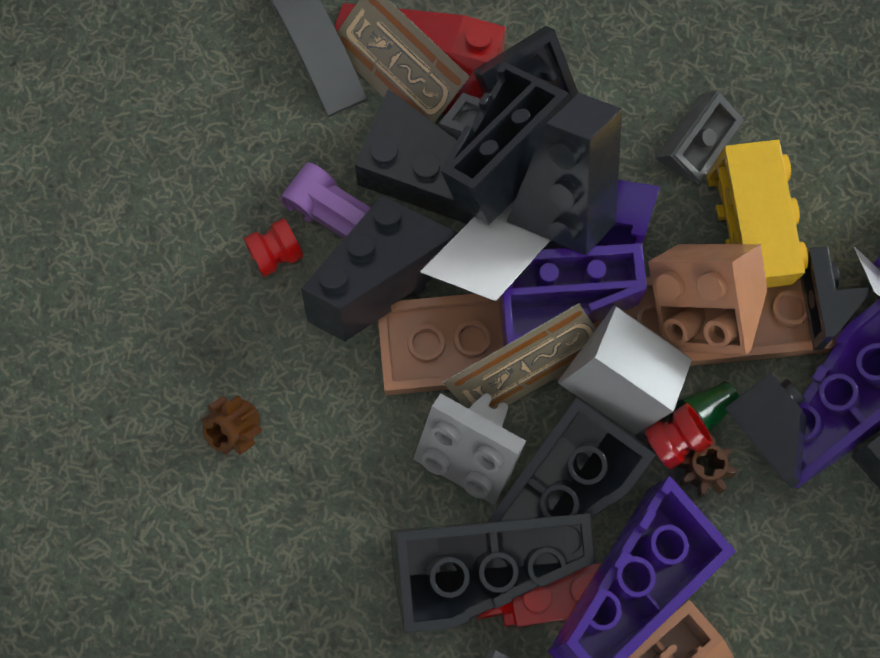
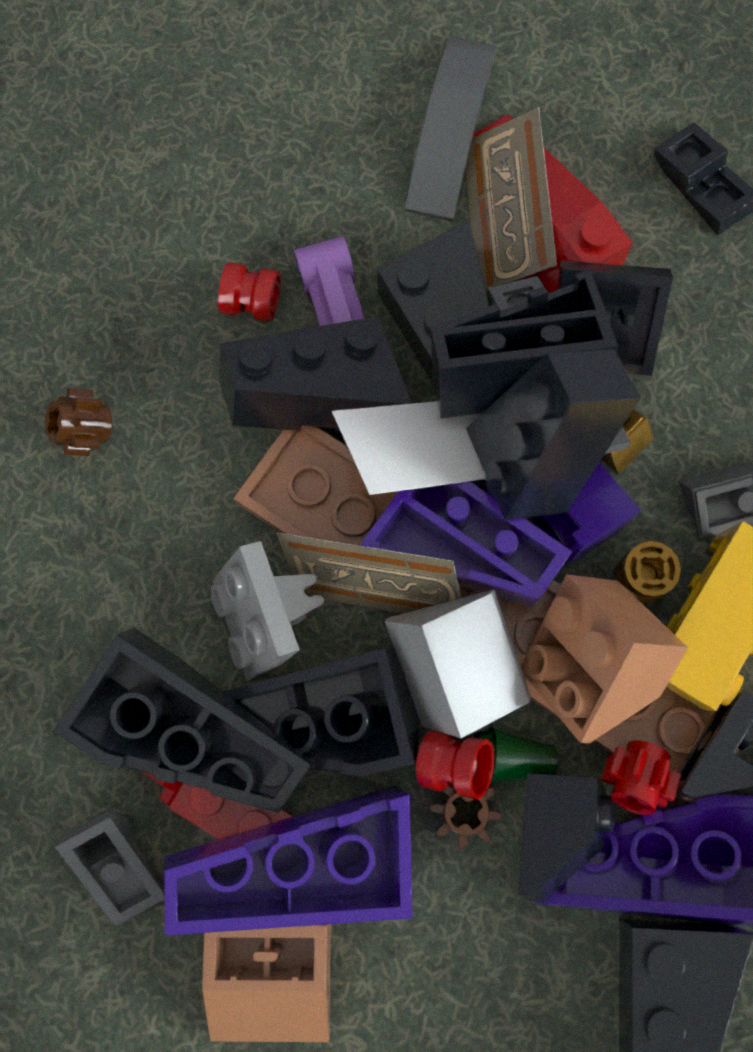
camera: 45 degrees right, 5 degrees up
(684, 233) = (641, 578): none -> pearl gold wheel
(794, 352) = (641, 777): none -> red gear

